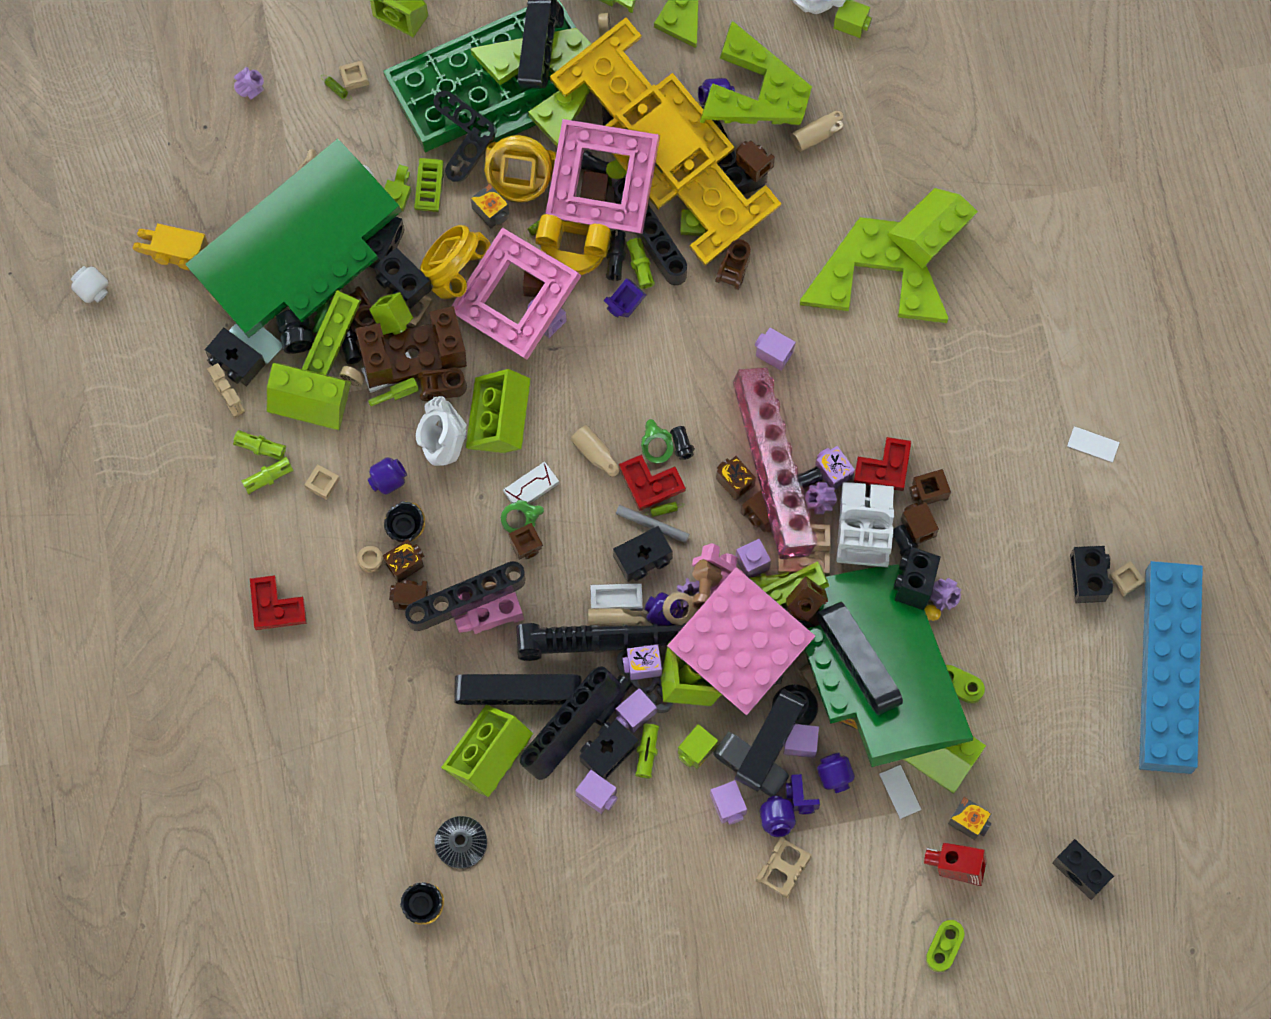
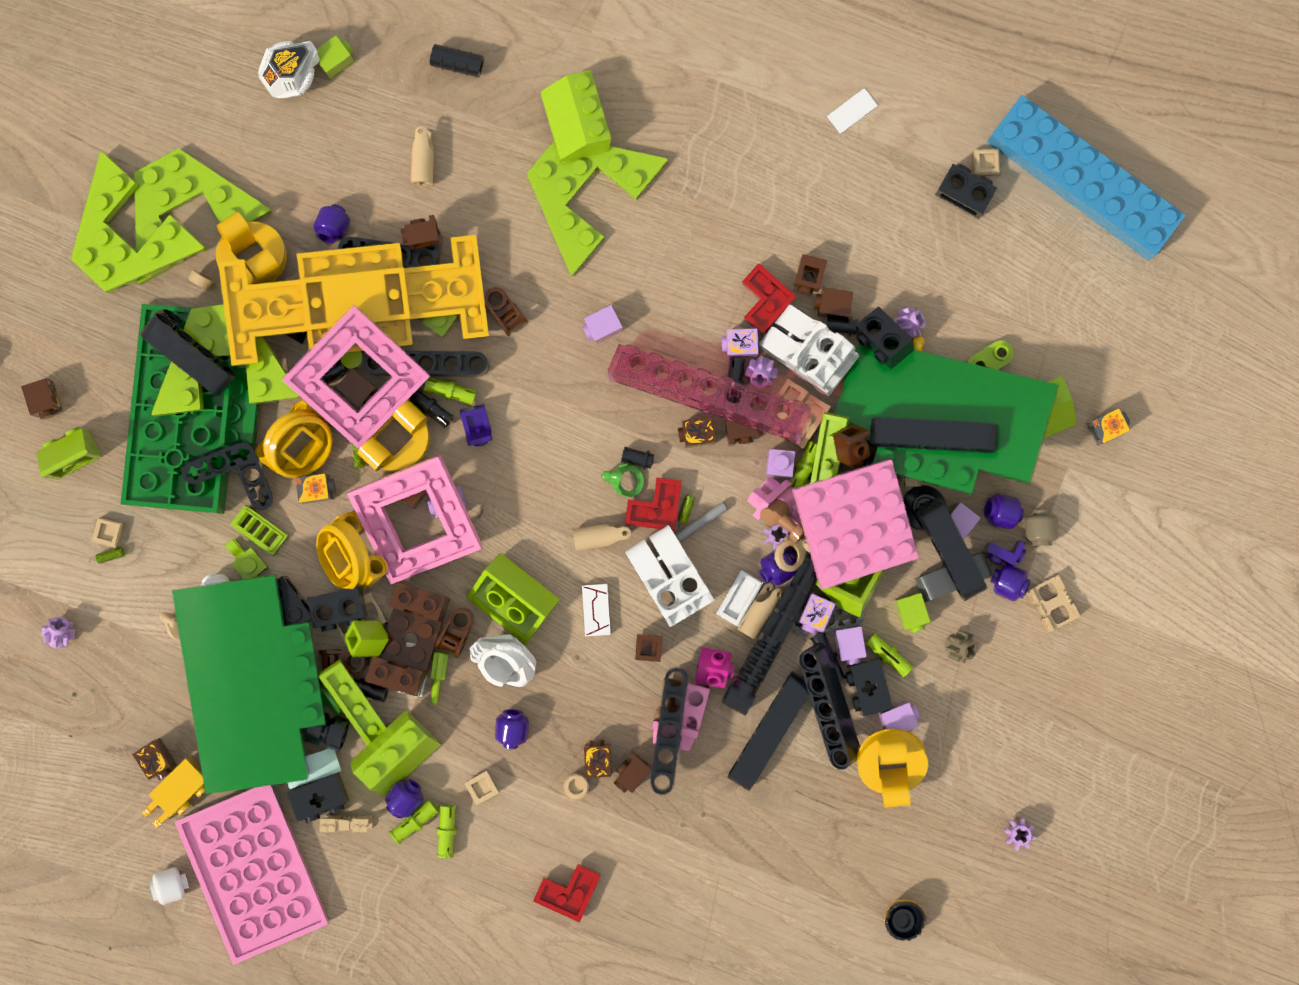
camera: 55 degrees left, 15 degrees up
(139, 343) = (252, 873): none -> bright pink plate
(189, 213) = (154, 760): none -> reddish brown brick
(274, 424) = (404, 798): none -> dark purple head
(352, 374) = (400, 704): tan tile -> none
(404, 522) = (563, 739): black hair -> none
(461, 855) = (860, 845): dish -> none
(487, 750) = (807, 788): lime slope -> none
(531, 512) = (620, 624): bright green piece -> none
(535, 820) = (892, 747): none -> yellow piece
(542, 607) = (714, 667): none -> dark pink brick
(562, 966) = (1027, 836): none -> lavender gear
(597, 526) = (680, 569): none -> white connector
(649, 543) = (711, 539): black brick -> none
(659, 32) = (239, 235): none -> yellow piece
(694, 806) = (961, 646): none -> dark tan gear
(728, 803) = (975, 615): lavender brick -> none
(781, 95) = (368, 165): lime wing -> none
(842, 813) = (1041, 528): none -> dark tan head
(900, 791) = (1053, 468): white sticker -> none
(914, 110) = (456, 60): none -> black axle
(946, 947) = (1198, 513): lime plate -> none
(969, 865) = (1151, 455): red torso -> none
(1083, 869) = (1206, 362): black brick -> none

